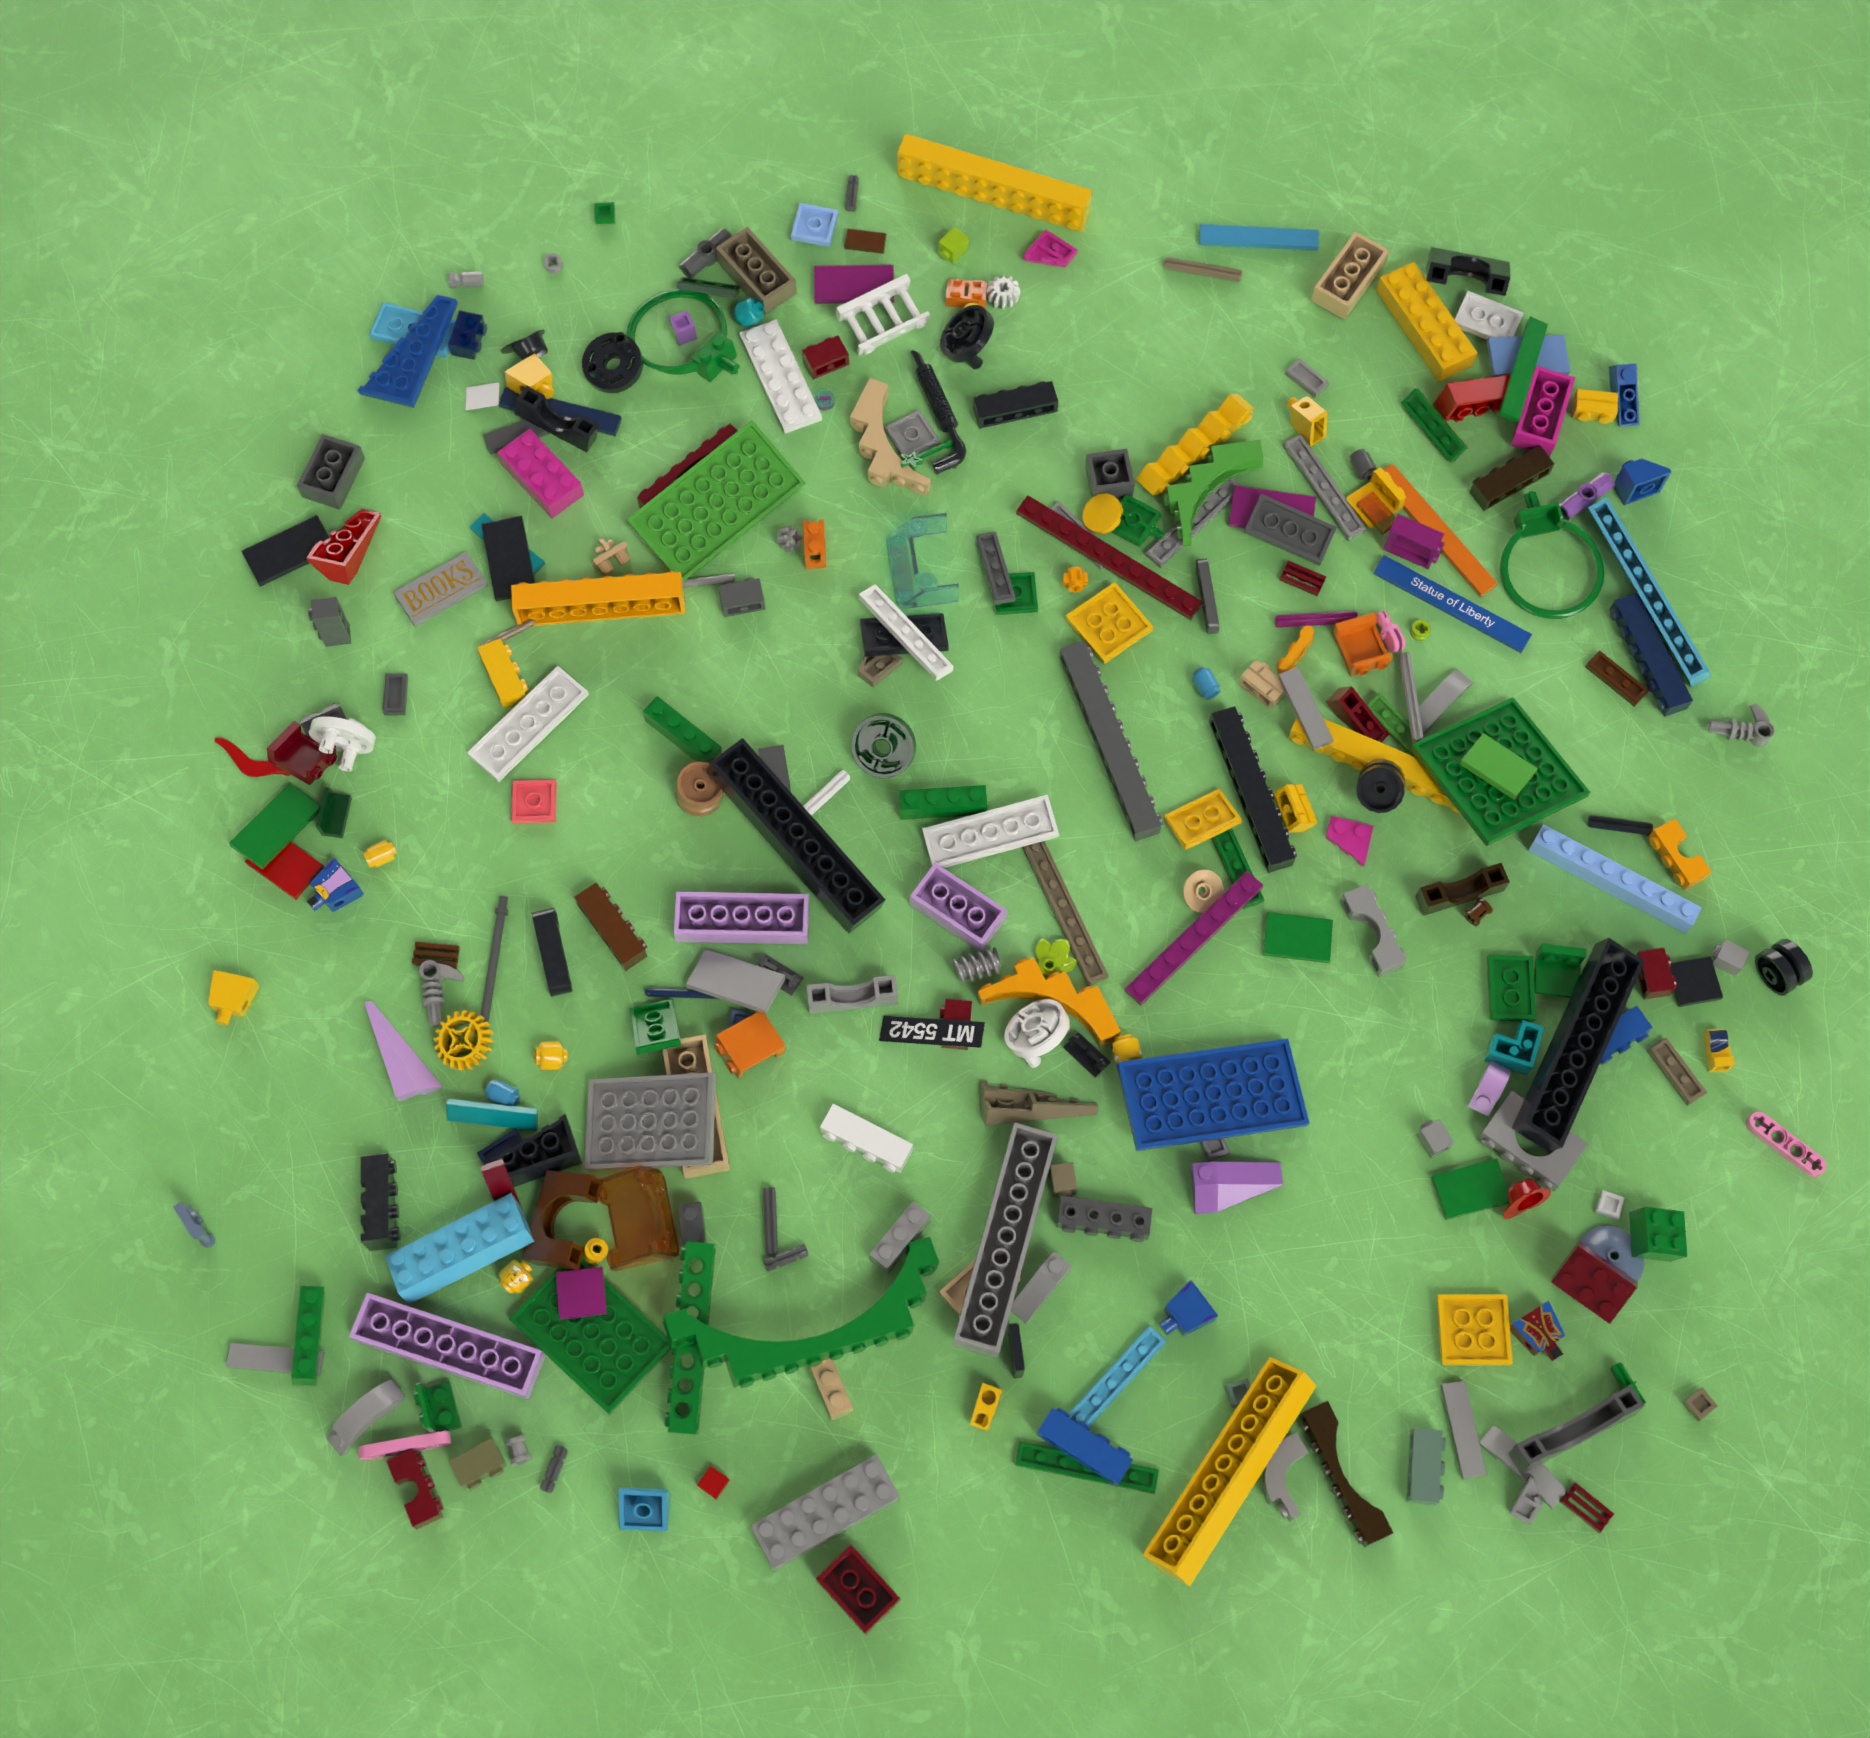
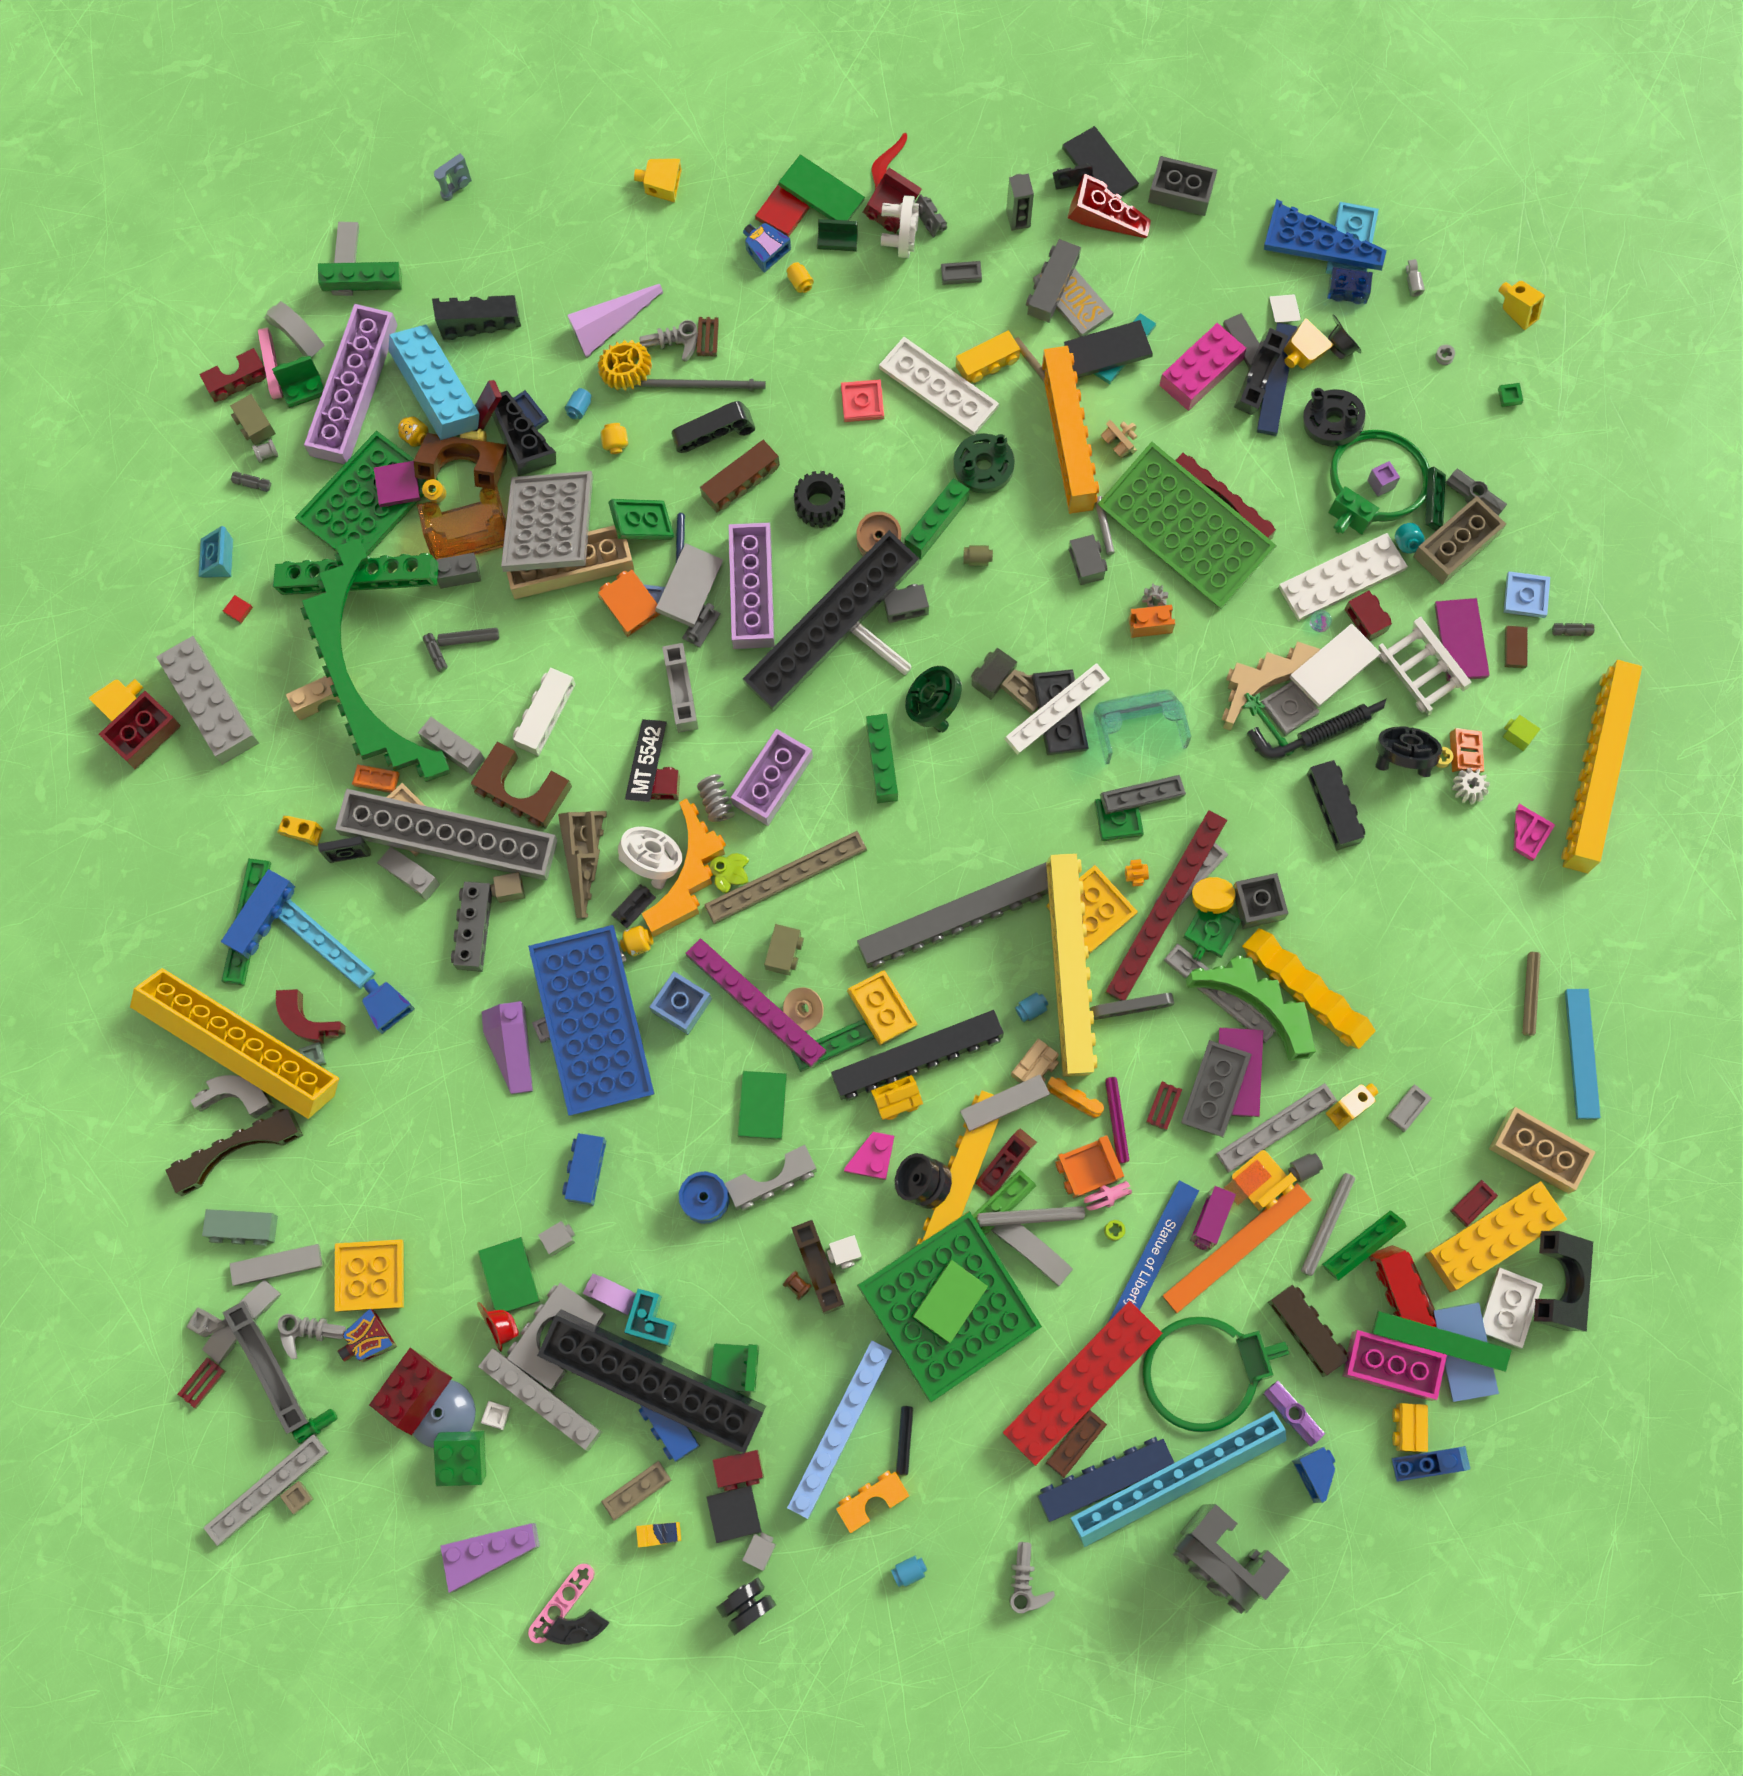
camera: 90 degrees right, 5 degrees up
(301, 581) = (1071, 177): none -> black hinge
(424, 600) = (1053, 280): none -> dark grey brick
(492, 1114) = (559, 395): teal tile -> none
(509, 189) = (1522, 303): none -> yellow torso
(528, 1208) = (475, 435): none -> light yellow pin
(616, 671) = (995, 452): none -> dark green piece
(648, 830) = (814, 485): none -> black tyre
(727, 698) = (978, 555): none -> olive brick
(819, 1619) = (116, 697): none -> yellow torso
(858, 692) = (993, 672): none -> clear smoke brick
(879, 385) = (1335, 665): none -> white tile
(931, 1322) = (375, 778): none -> orange plate
(945, 1196) = (537, 808): none -> reddish brown arch
(991, 832) = (852, 804): white plate -> none
(1142, 906) = (783, 950): none -> olive brick
(1172, 638) = (1070, 965): none -> light yellow brick
(1193, 1413) = (290, 1009): none -> dark red arch
(1195, 1006) = (680, 1003): none -> medium blue brick
(1364, 1109) = (584, 1169): none -> blue brick
(1393, 337) = (1474, 1203): none -> dark red tile
(1395, 991) = (695, 1187): none -> blue wheel
(1414, 453) = (1328, 1224): none -> light grey axle
(1445, 865) = (844, 1252): none -> white brick
(1511, 988) = (717, 1319): green plate -> none
(1529, 1395) = (306, 1327): none -> light grey piece
(1566, 665) = (1082, 1383): none -> red brick
(1595, 1157) = (540, 1399): none -> light grey brick
(1694, 1436) = (266, 1490): none -> light grey plate
(1724, 554) = (1222, 1572): none -> dark grey piece
(1739, 826) = (909, 1571): none -> dark azure brick
(1745, 1211) = (477, 1556): none -> medium lavender wedge
(1812, 1134) = (577, 1629): none -> black tile

